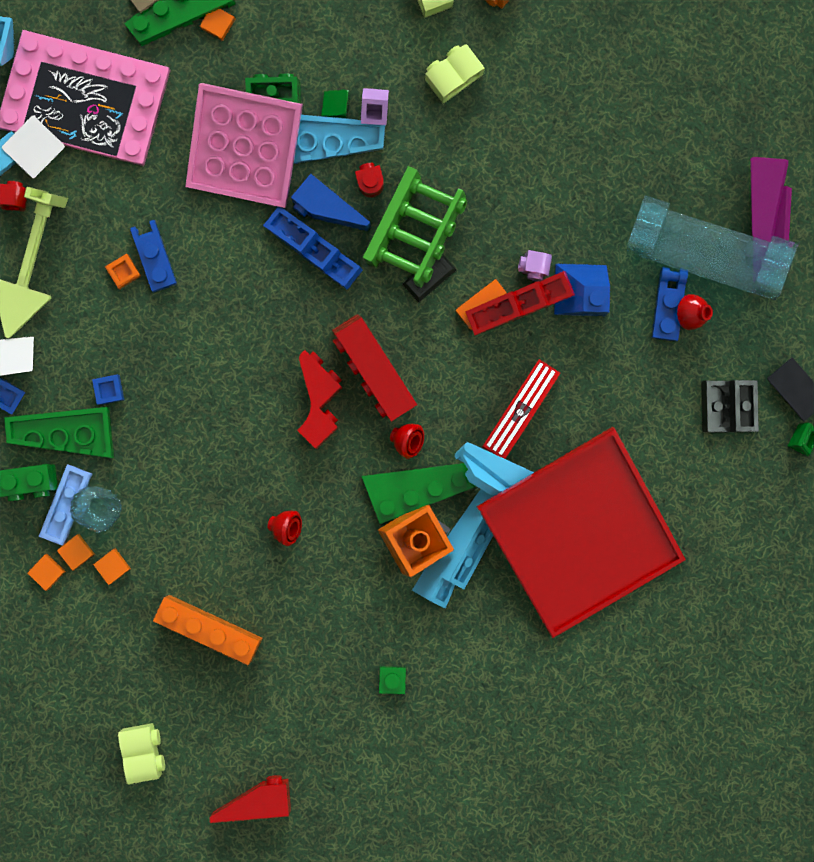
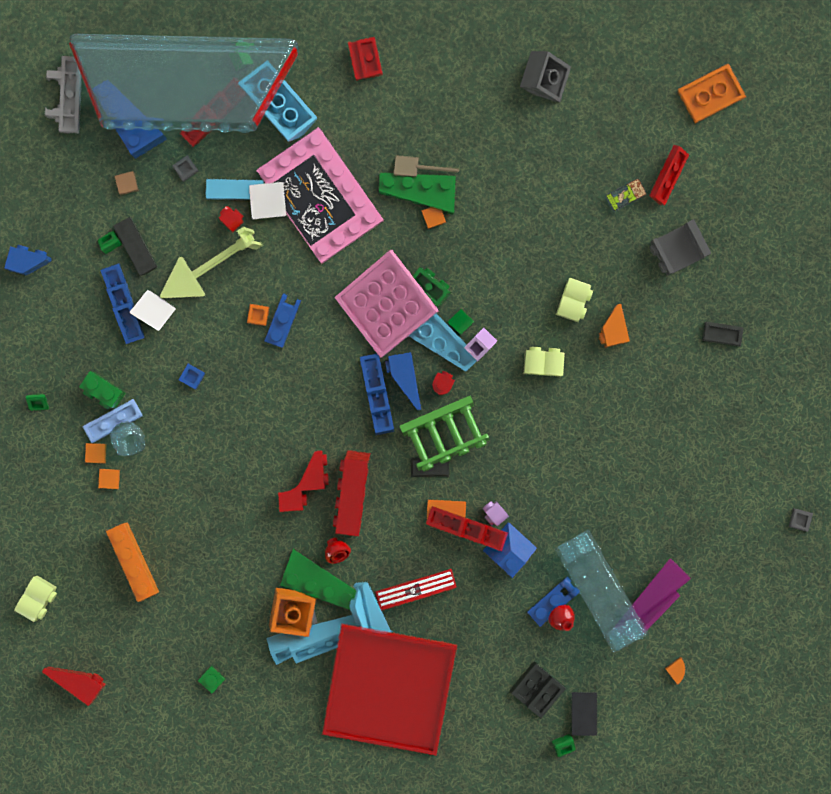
camera: 45 degrees right, 0 degrees up
(46, 572) = (69, 450): orange tile -> none
(69, 431) = (150, 381): green wing -> none
(286, 527) = (225, 541): red brick -> none

